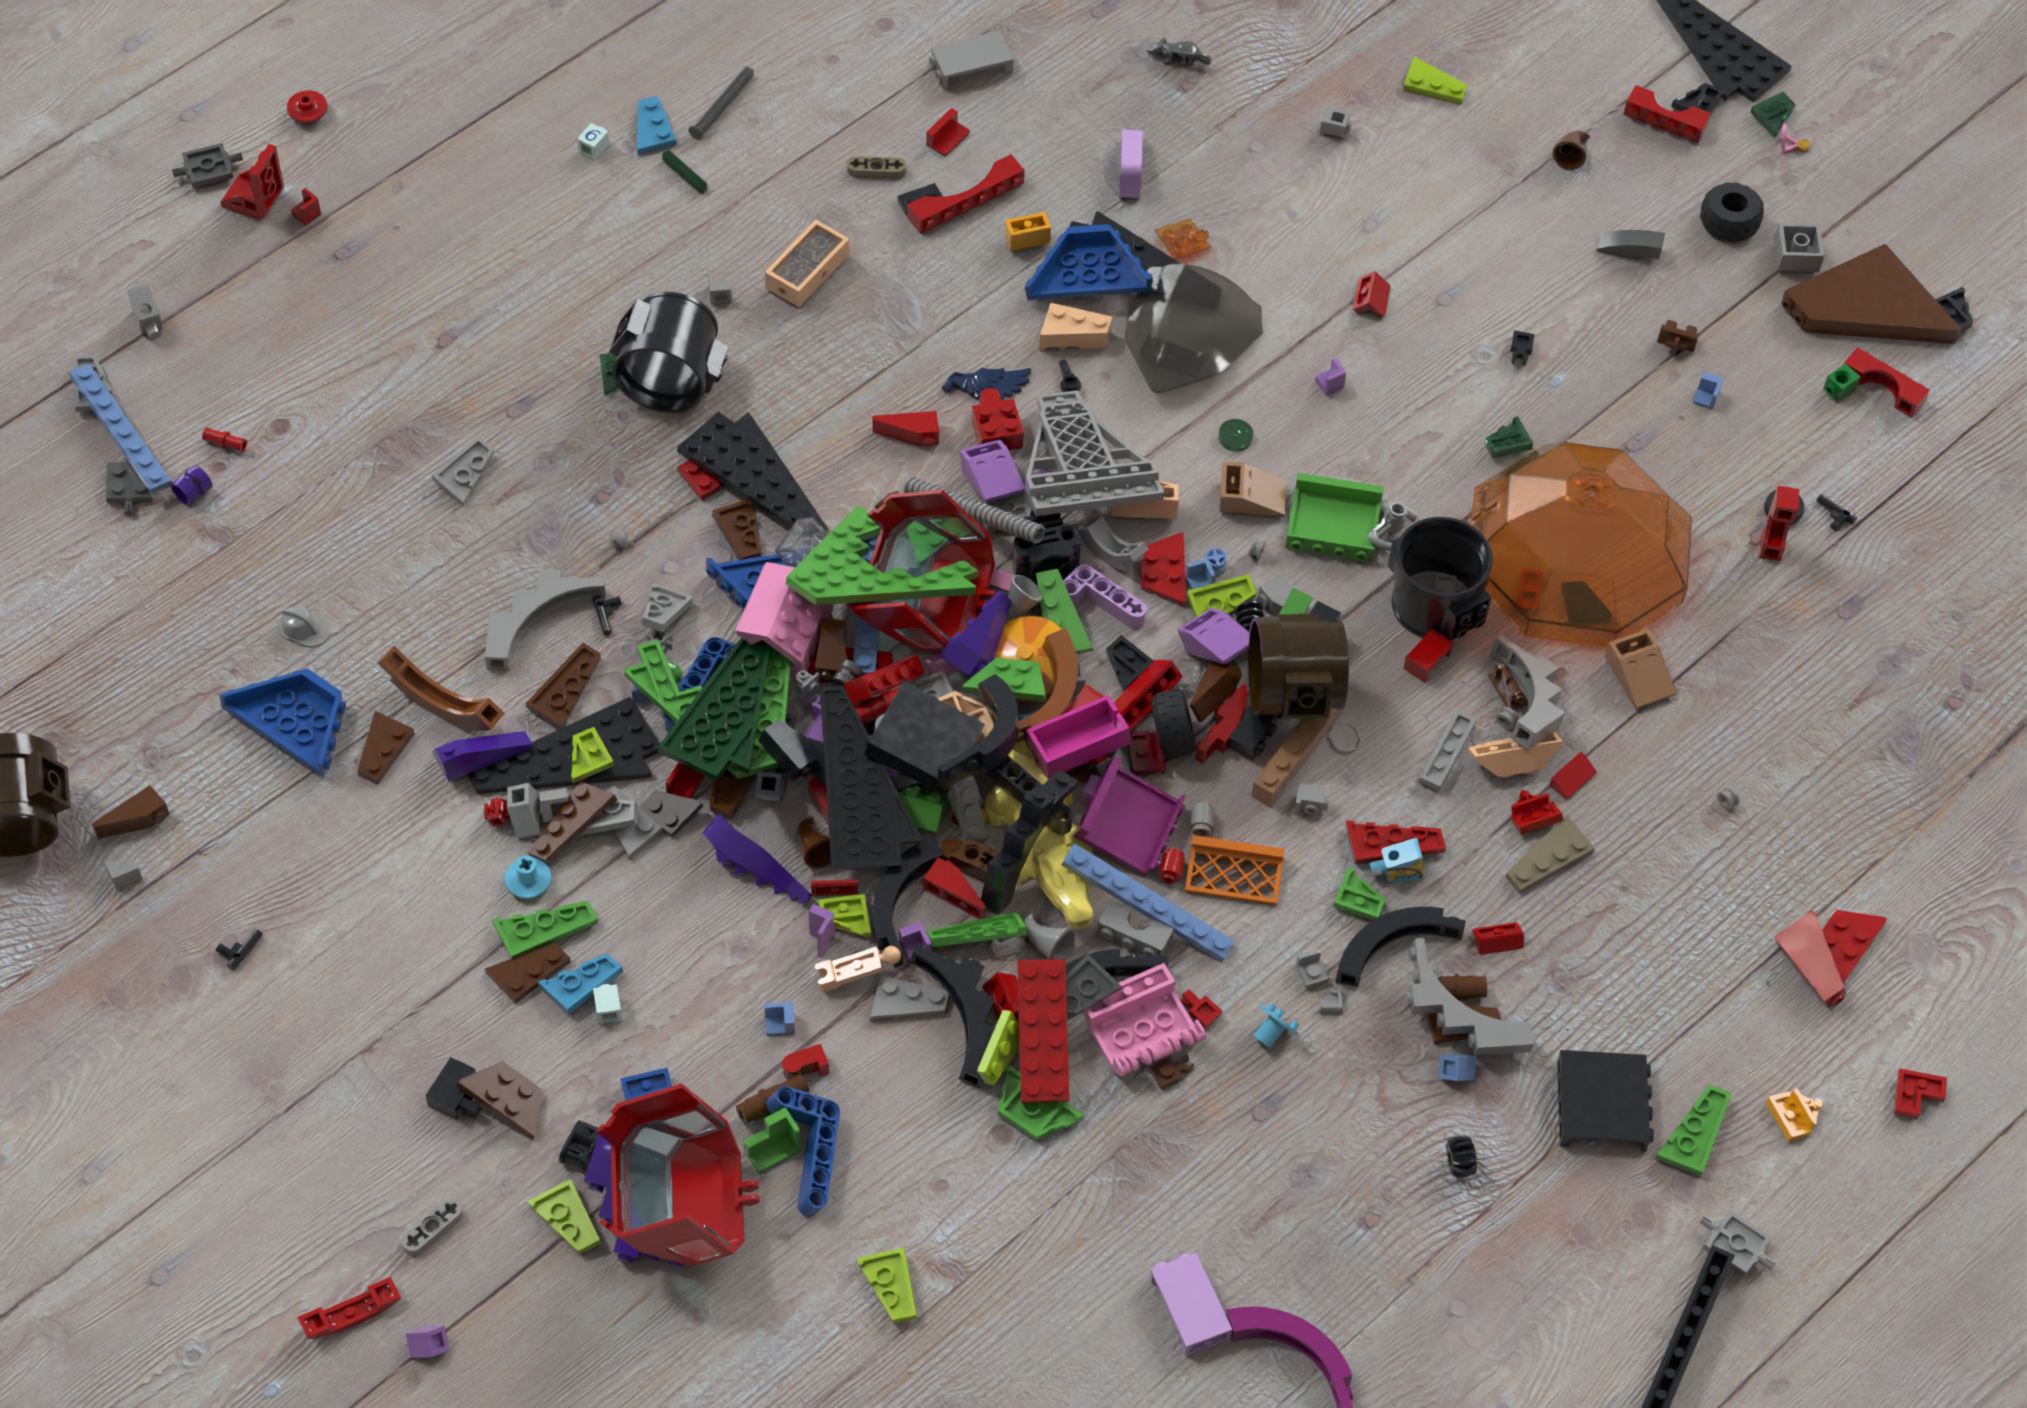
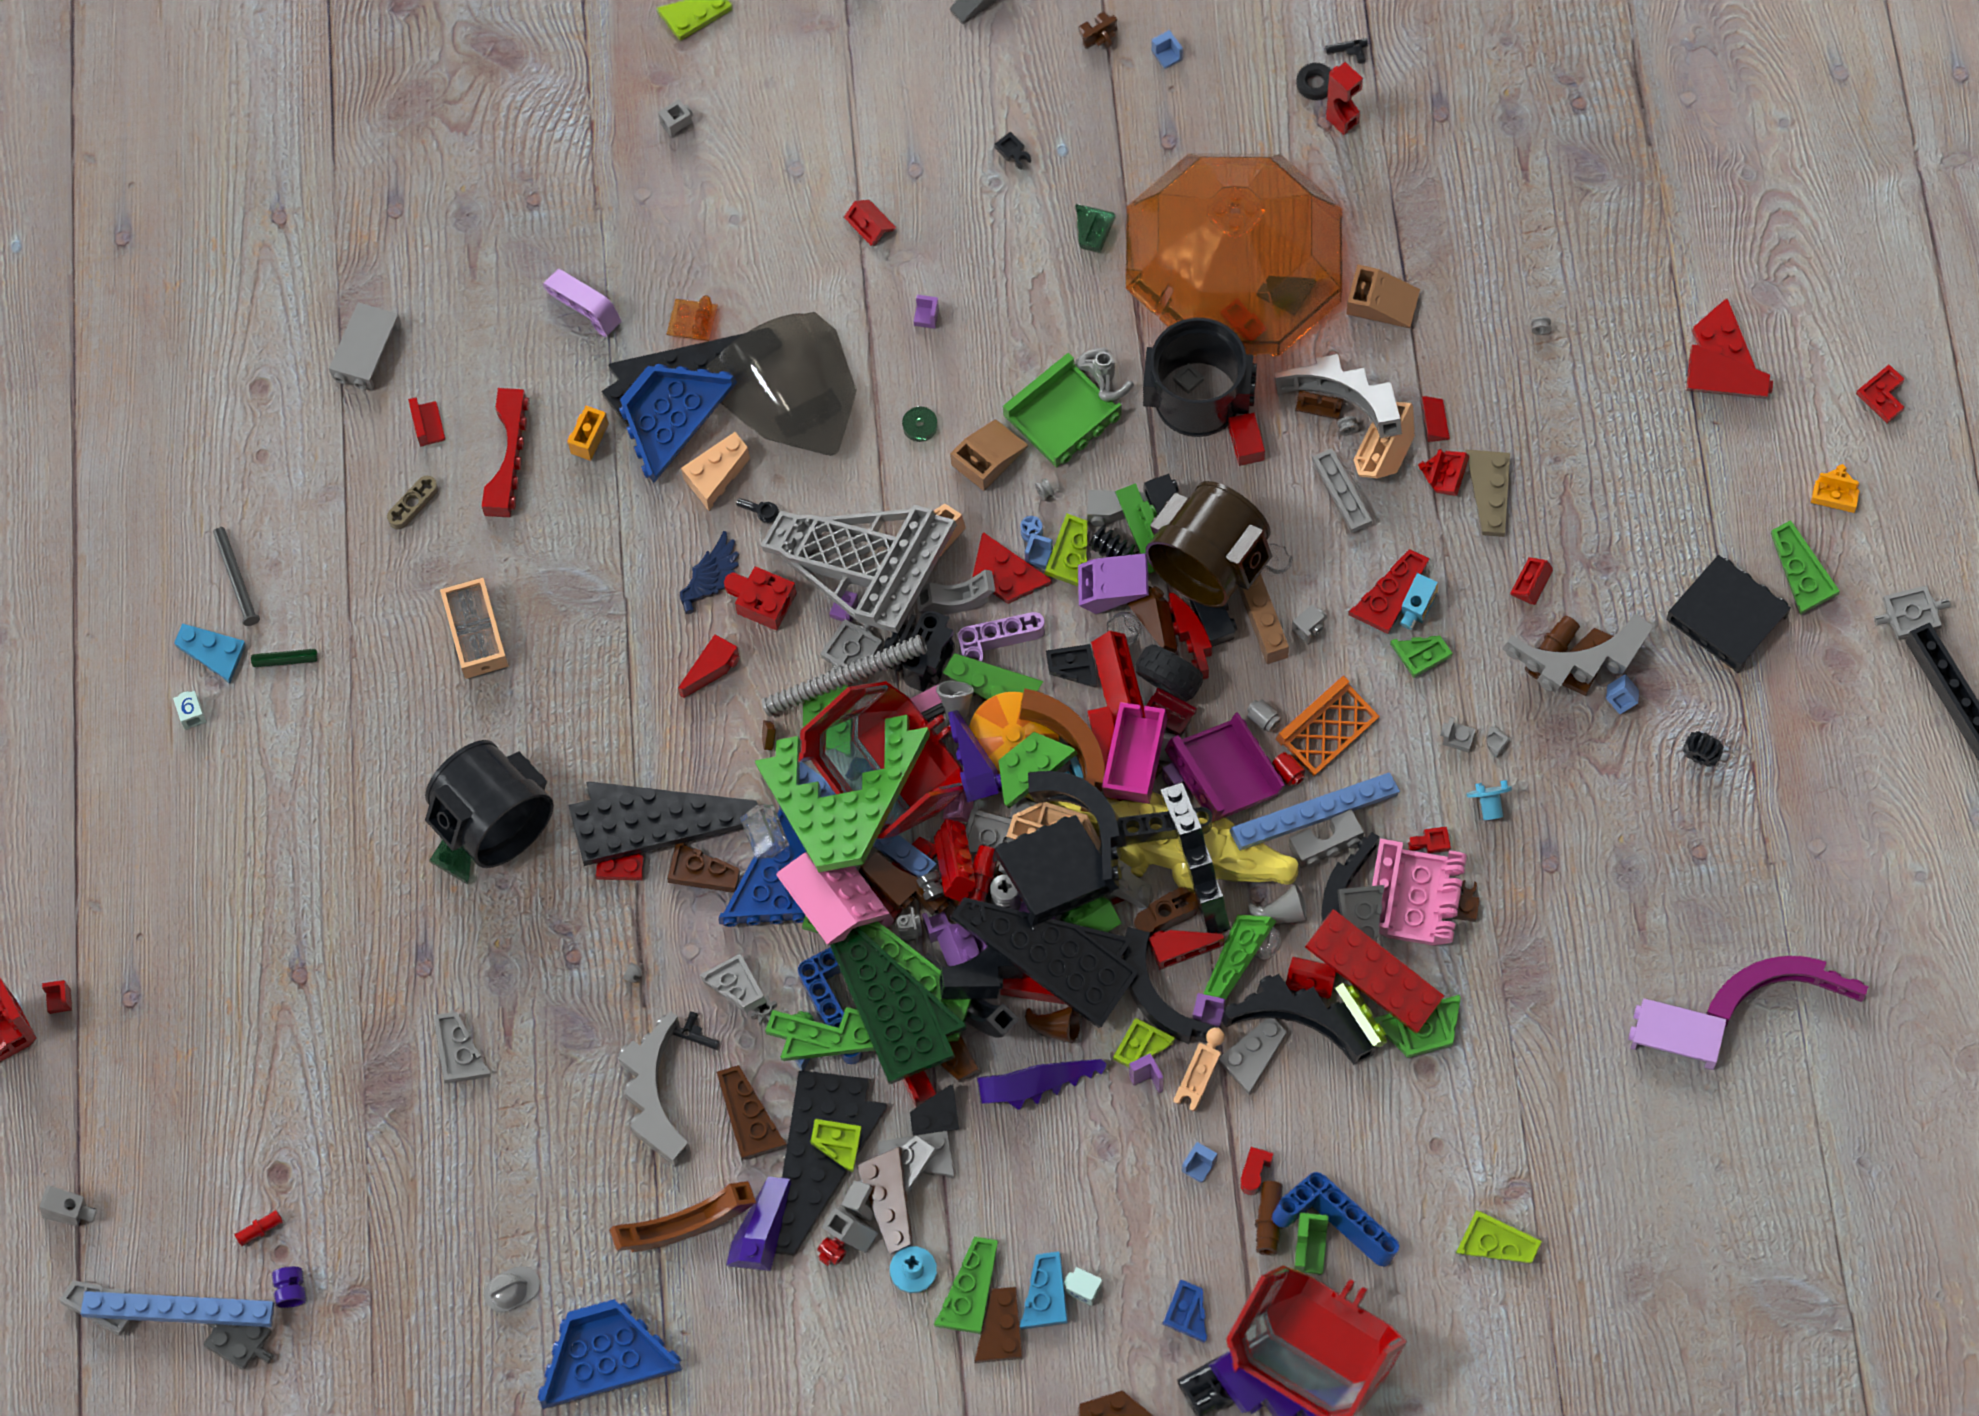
camera: 45 degrees left, 10 degrees up
(383, 746) = (688, 1301): reddish brown wing -> none
(719, 291) = (437, 717): light grey panel -> none
(834, 887) = (1106, 1035): red slope -> none
(906, 198) = (473, 491): black plate -> none
(991, 471) = (812, 634): medium lavender slope -> none
(1182, 52) = (499, 177): dark grey animal -> none
(1389, 928) = (1470, 689): black arch -> none

